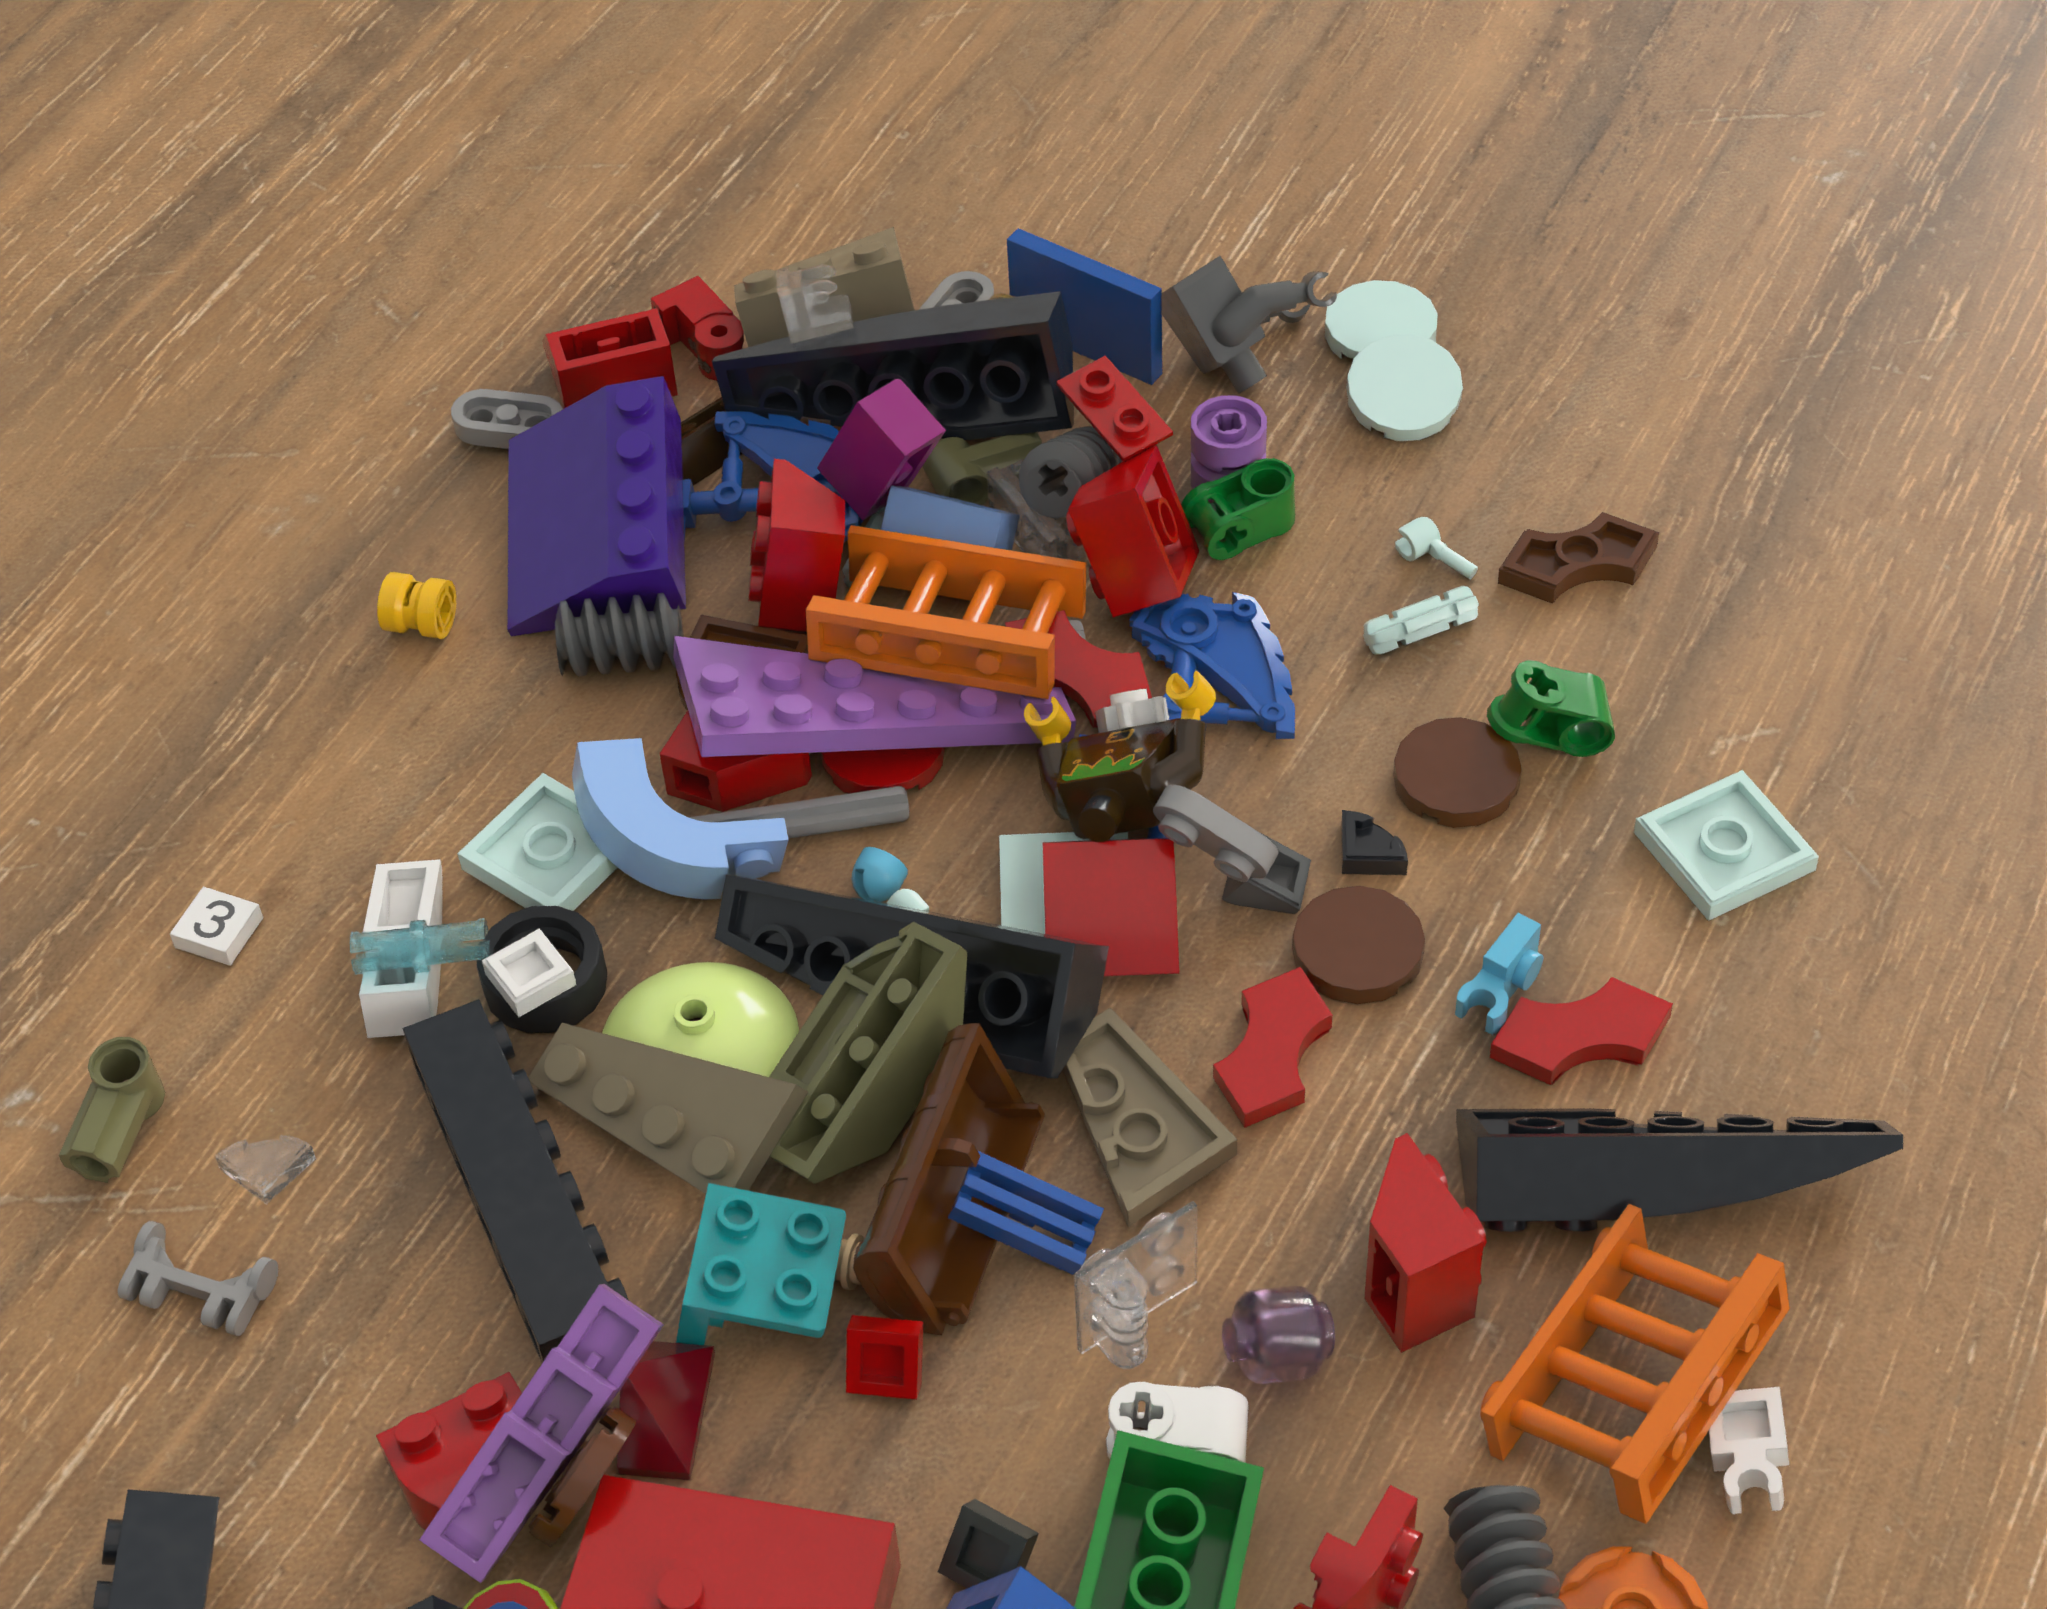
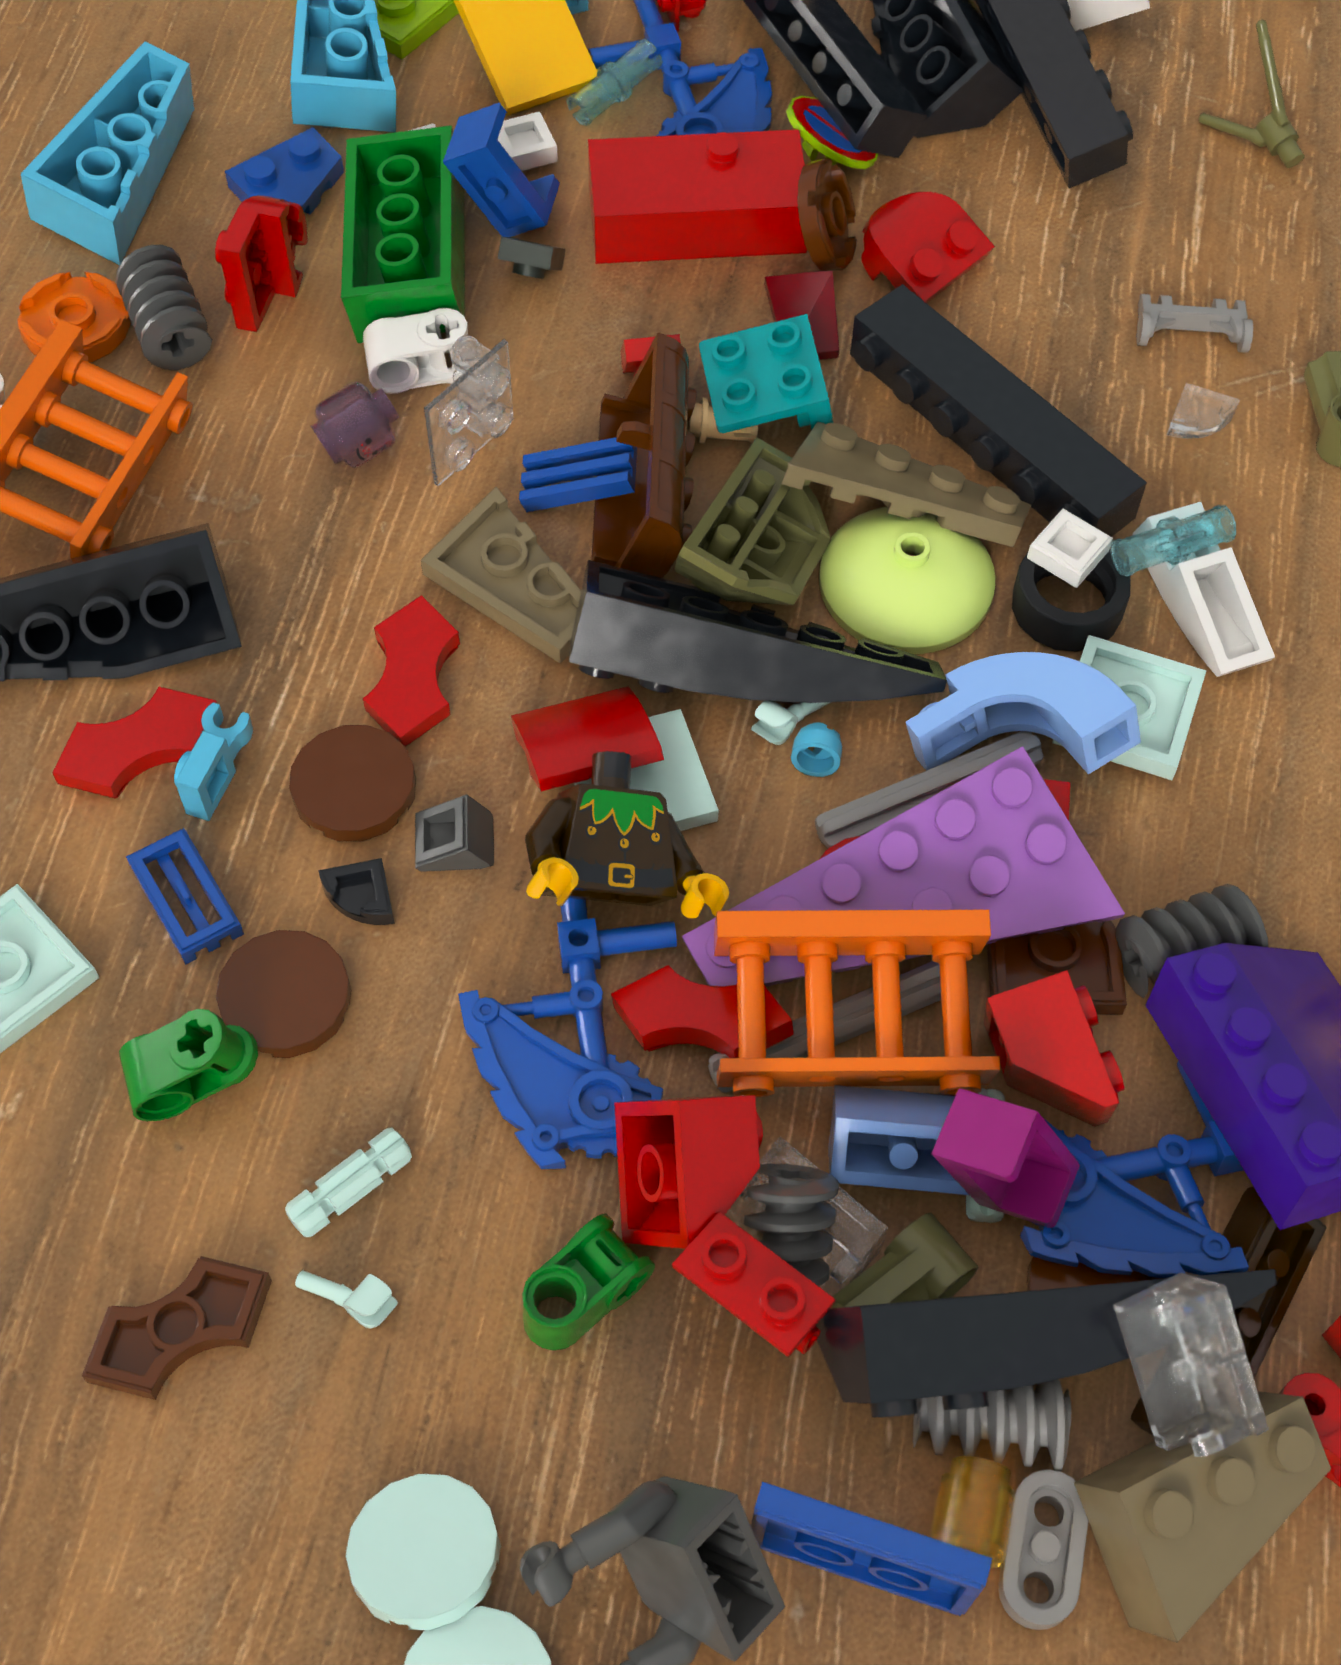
camera: 160 degrees right, 10 degrees up
(541, 1433) = (866, 225): medium lavender slope -> none
(1131, 710) = (624, 940): white plate -> none
(1196, 821) = (497, 781): light grey plate -> none
(1225, 437) = (617, 1354): medium lavender wheel -> none
(1421, 1250) = (248, 474): red slope -> none
(1559, 914) = (206, 934): none -> blue tile

